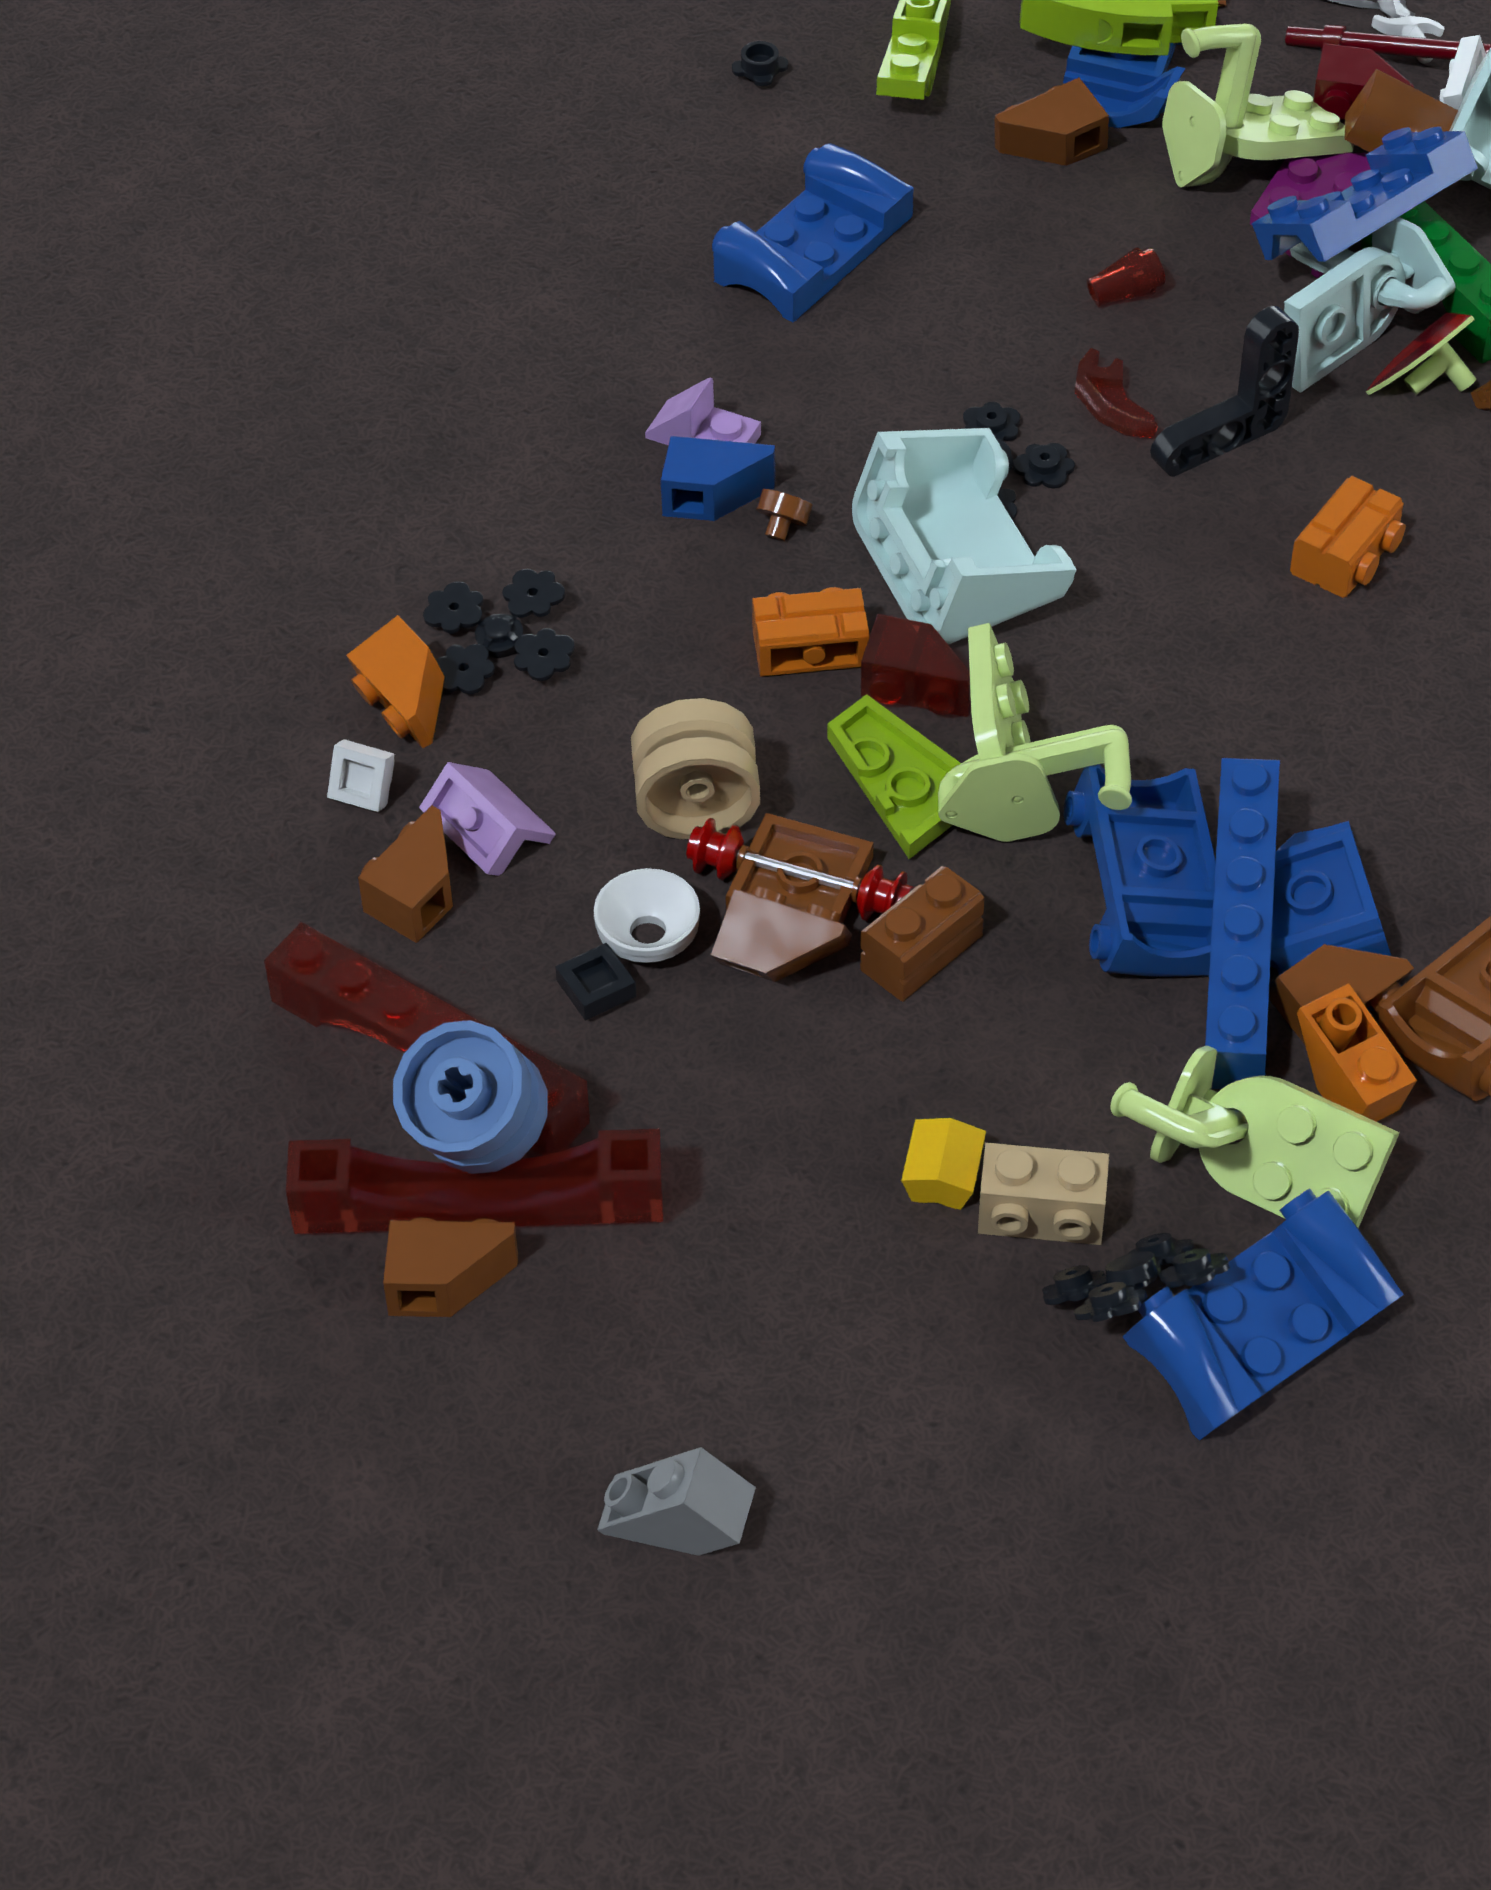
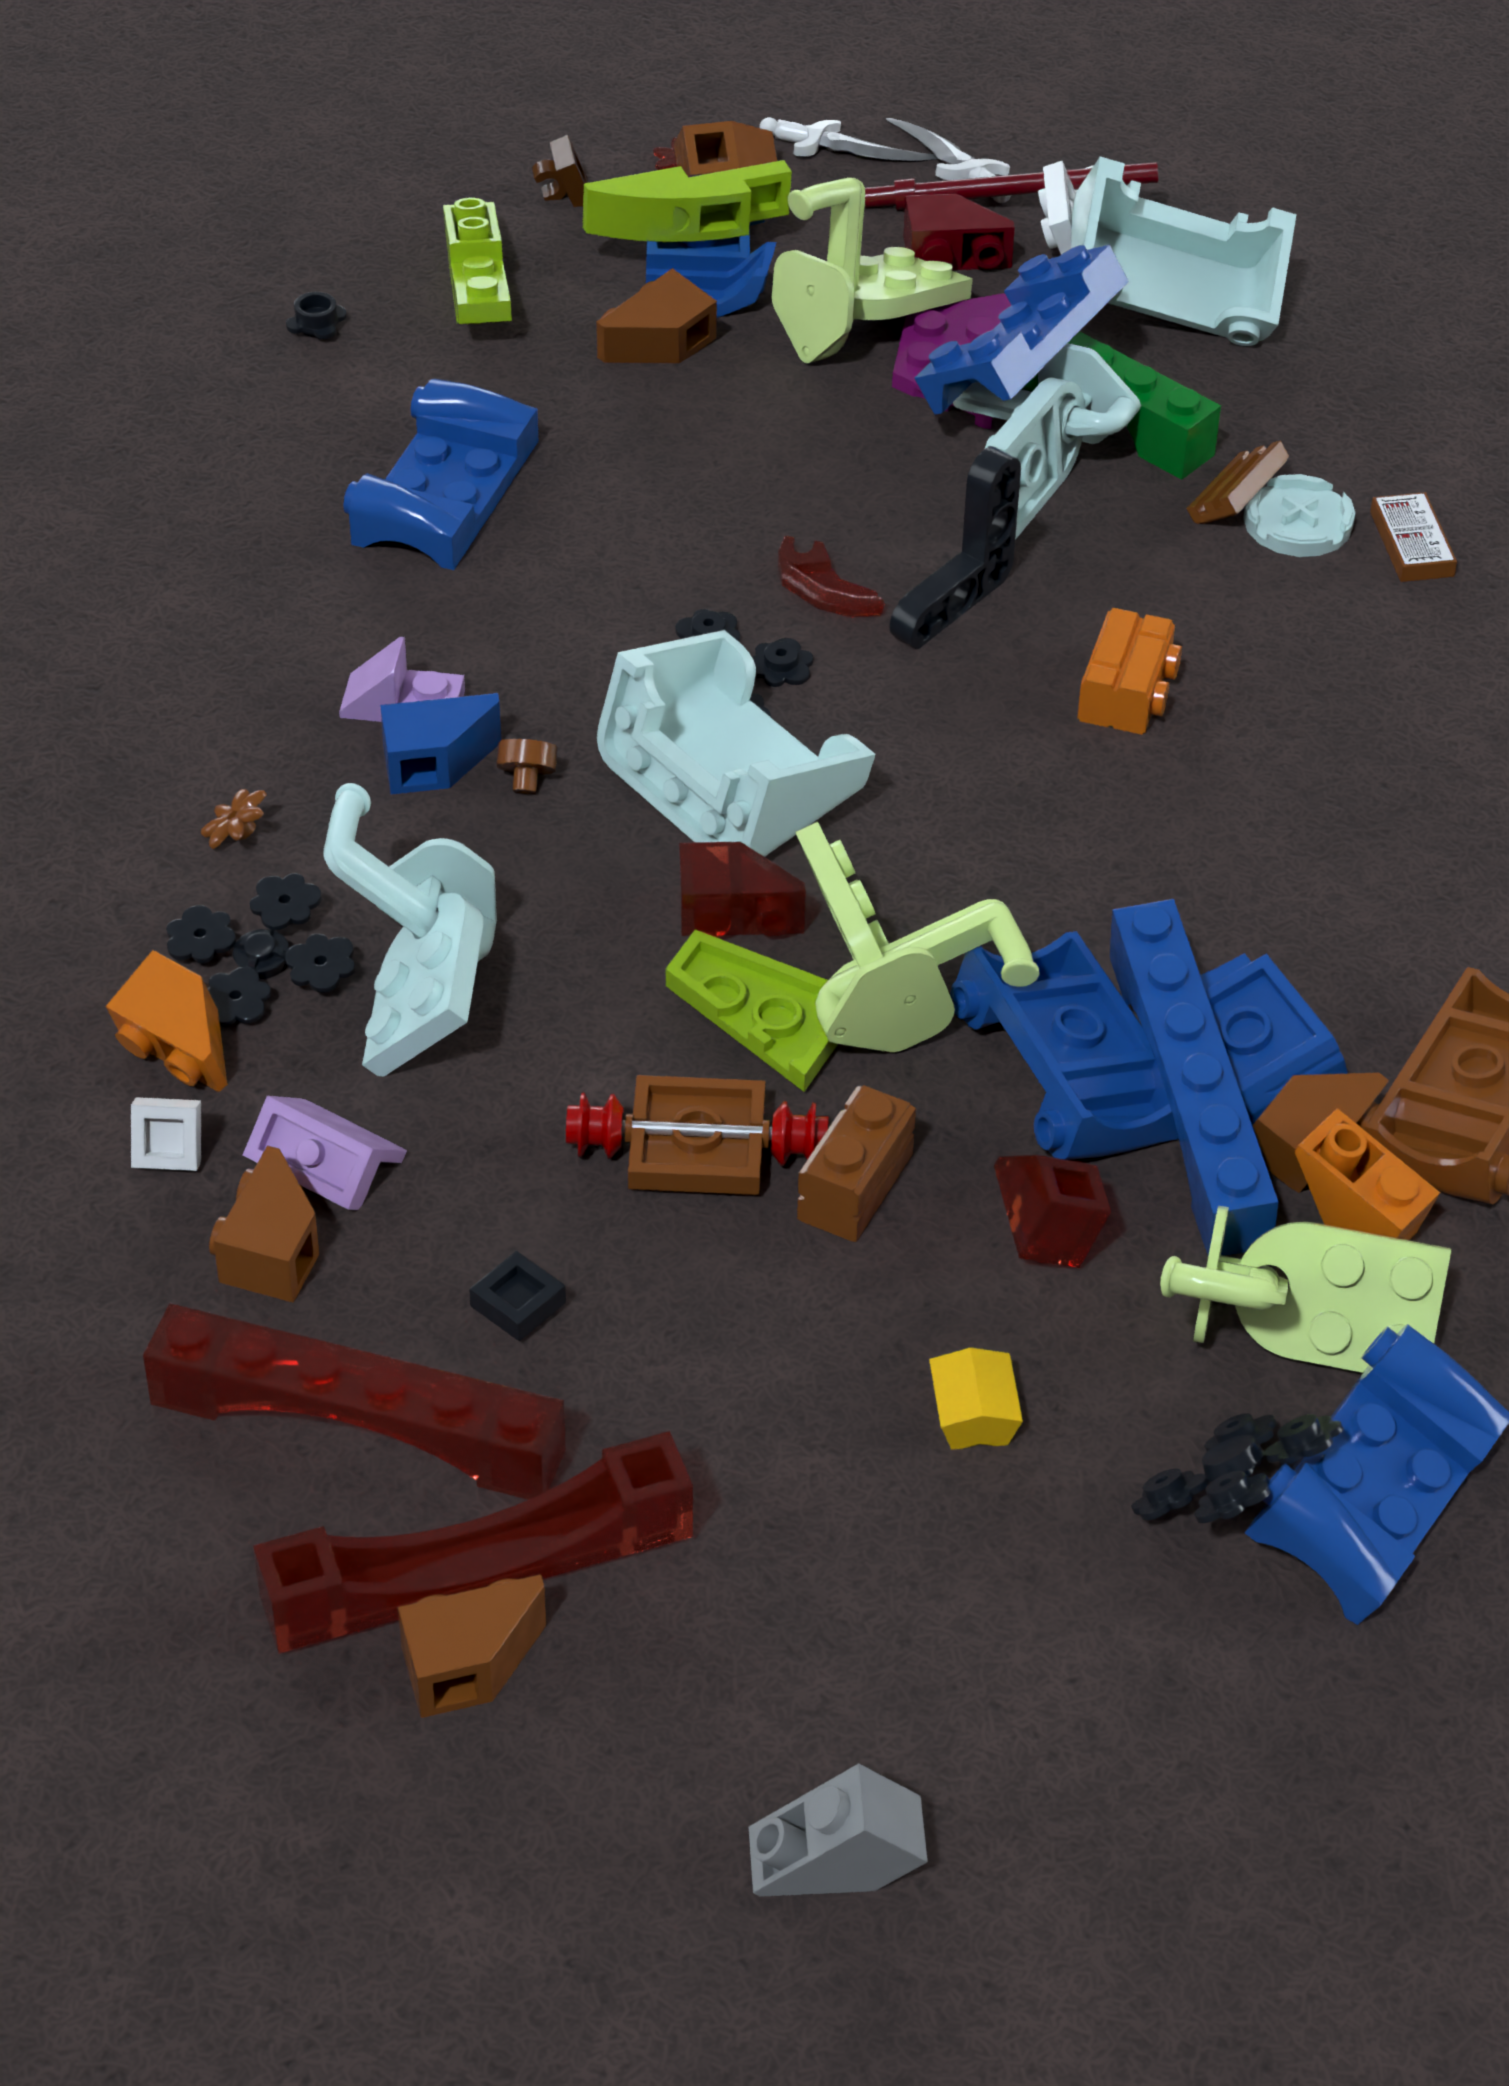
camera: 20 degrees left, 5 degrees down
(470, 1097) = (423, 1413): medium blue wheel -> none
(521, 512) = (235, 820): none -> dark orange plant
(647, 898) = (550, 1193): white piece -> none
(648, 619) = (448, 921): none -> light aqua plate
(693, 766) = (546, 1041): tan wheel -> none
(775, 939) = (703, 1203): slope -> none
(809, 631) = (607, 878): orange brick -> none
(1043, 1193) = (1098, 1404): tan brick -> none
(1073, 1013) = (1052, 1207): none -> clear red slope
(1129, 277) = (796, 458): clear red cone -> none
(1392, 105) = (999, 246): dark orange brick -> none
(1443, 358) = (1134, 479): shield -> none

